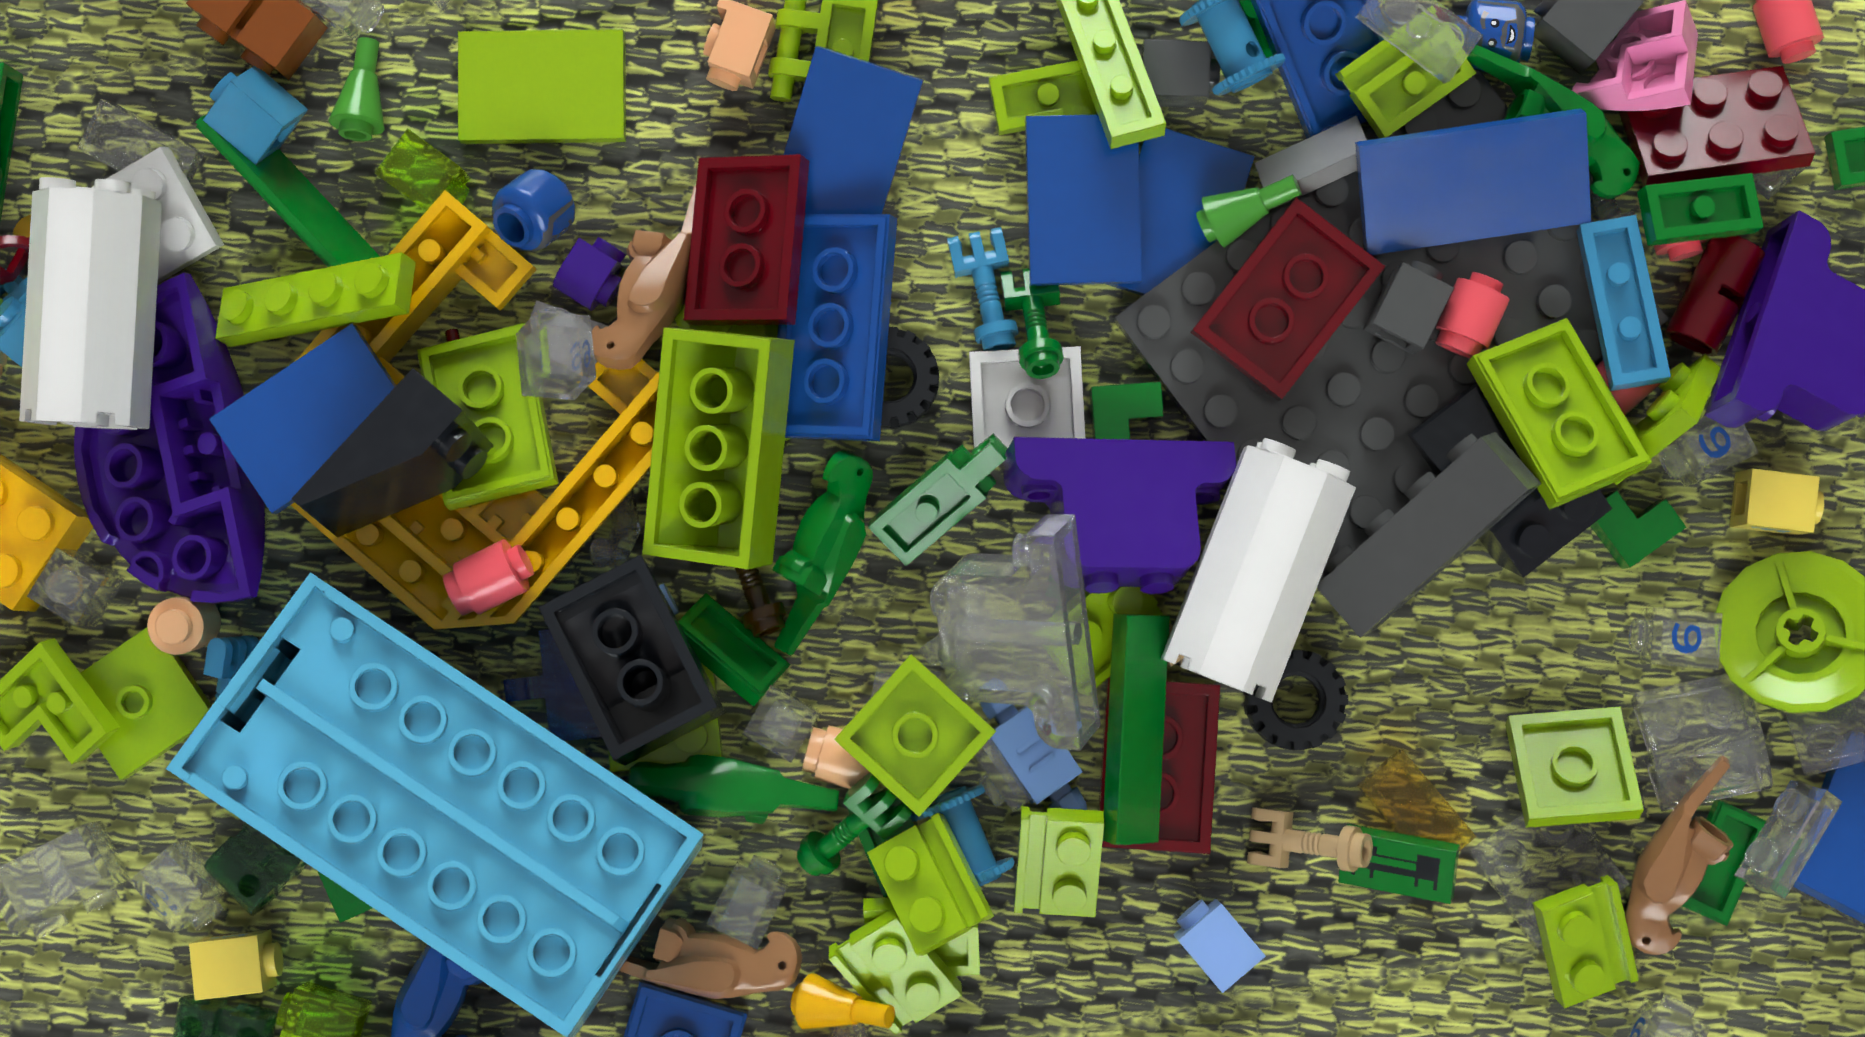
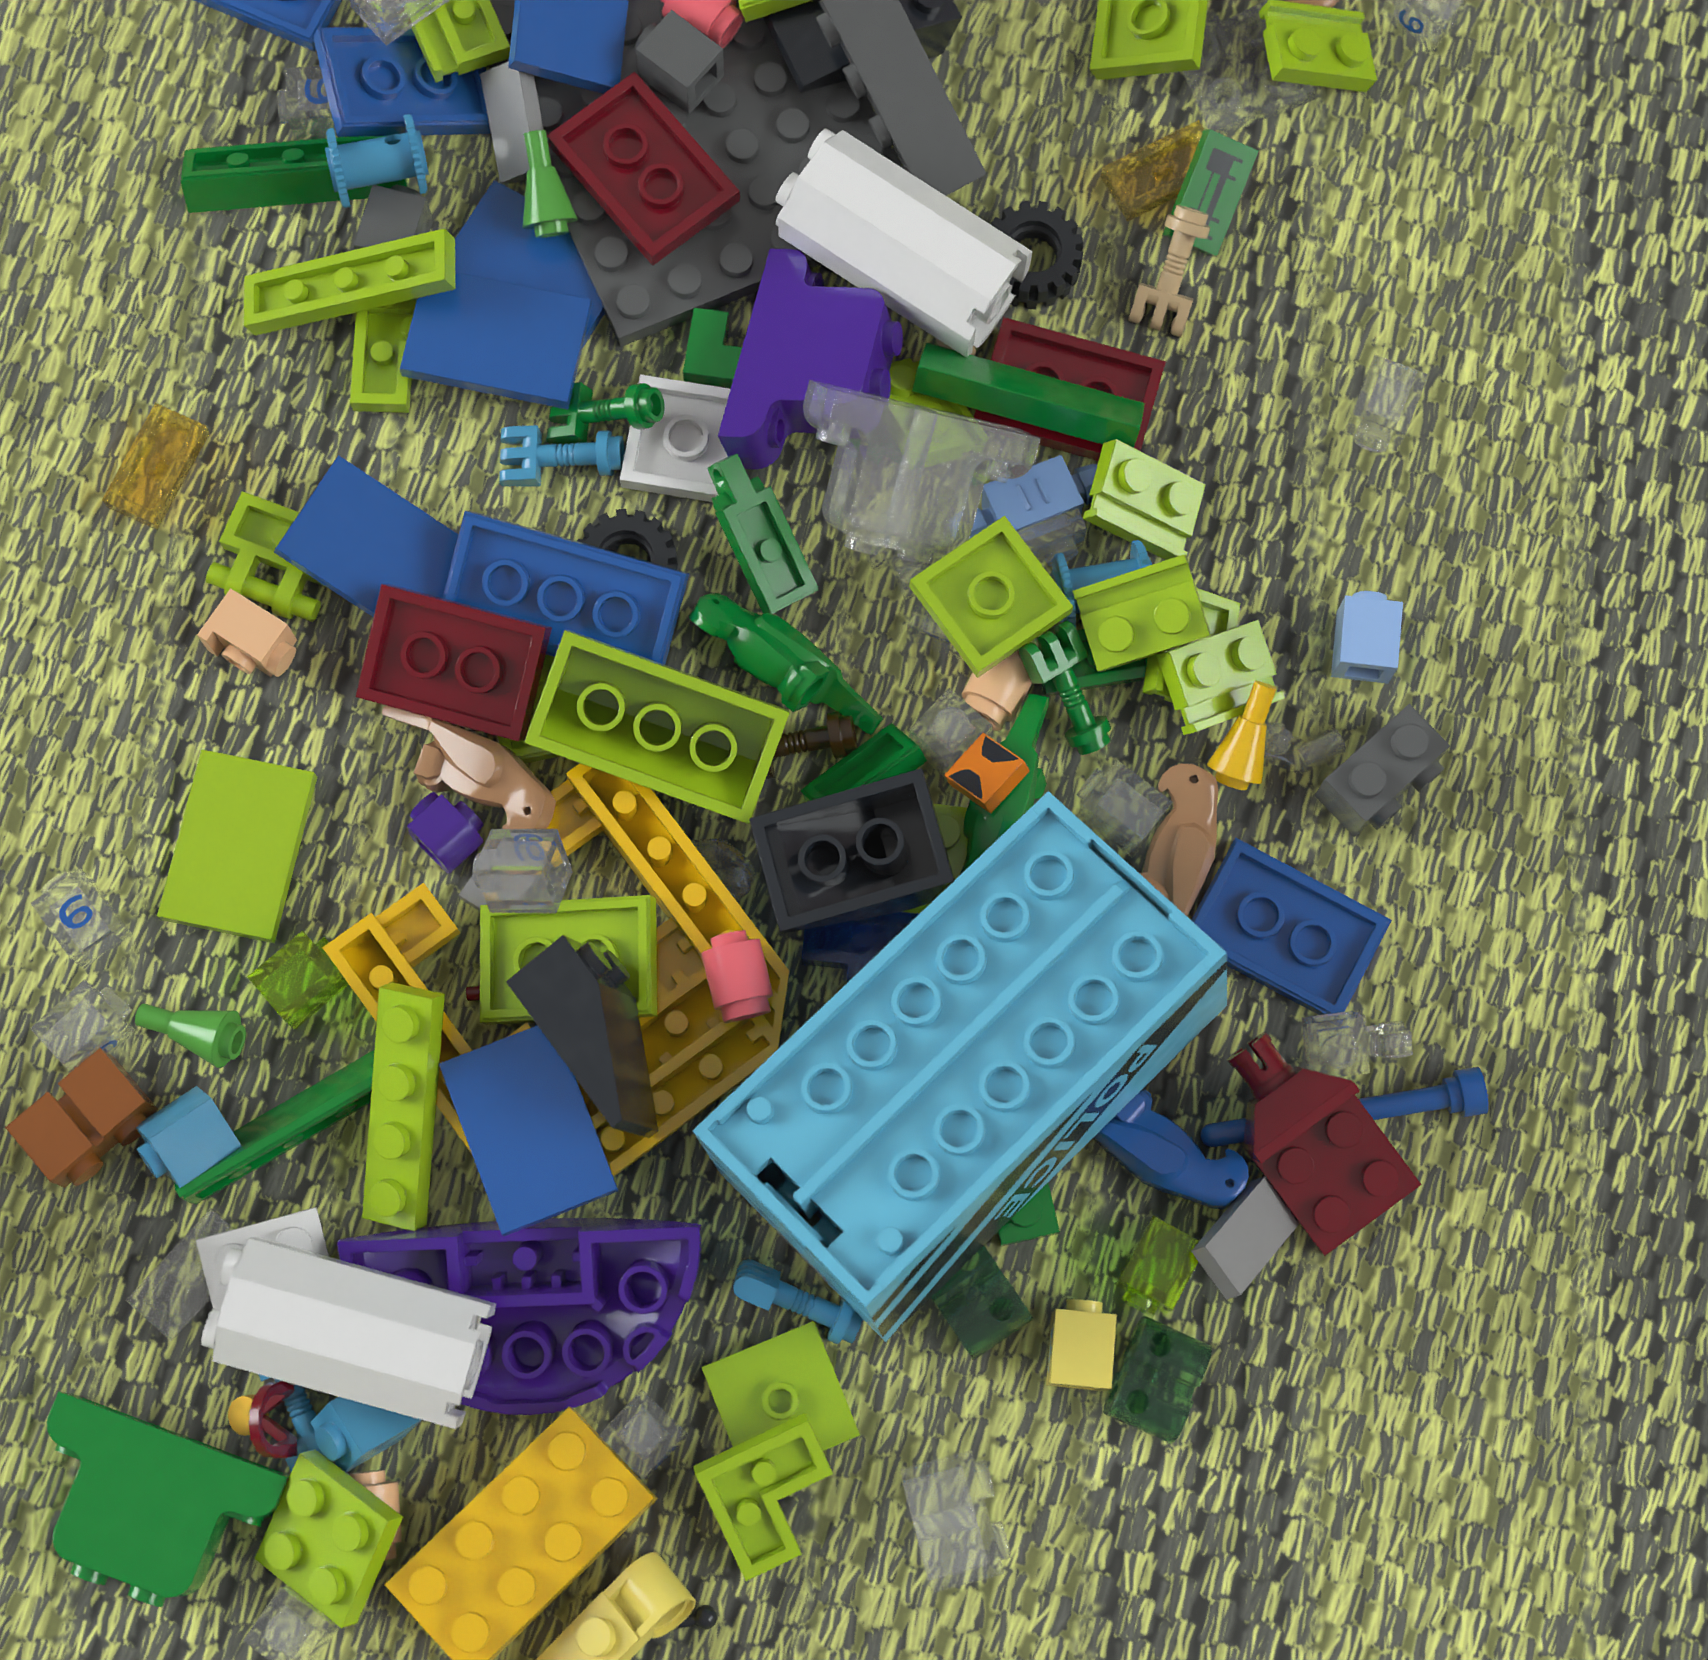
camera: 80 degrees left, 10 degrees down
(180, 887) = (989, 1387): clear brick -> none
(183, 625) = (710, 1323): light nougat brick -> none
(533, 210) = (365, 872): blue head -> none
(740, 767) = (986, 772): none -> orange tile
(1217, 943) = (1254, 374): light blue brick -> none

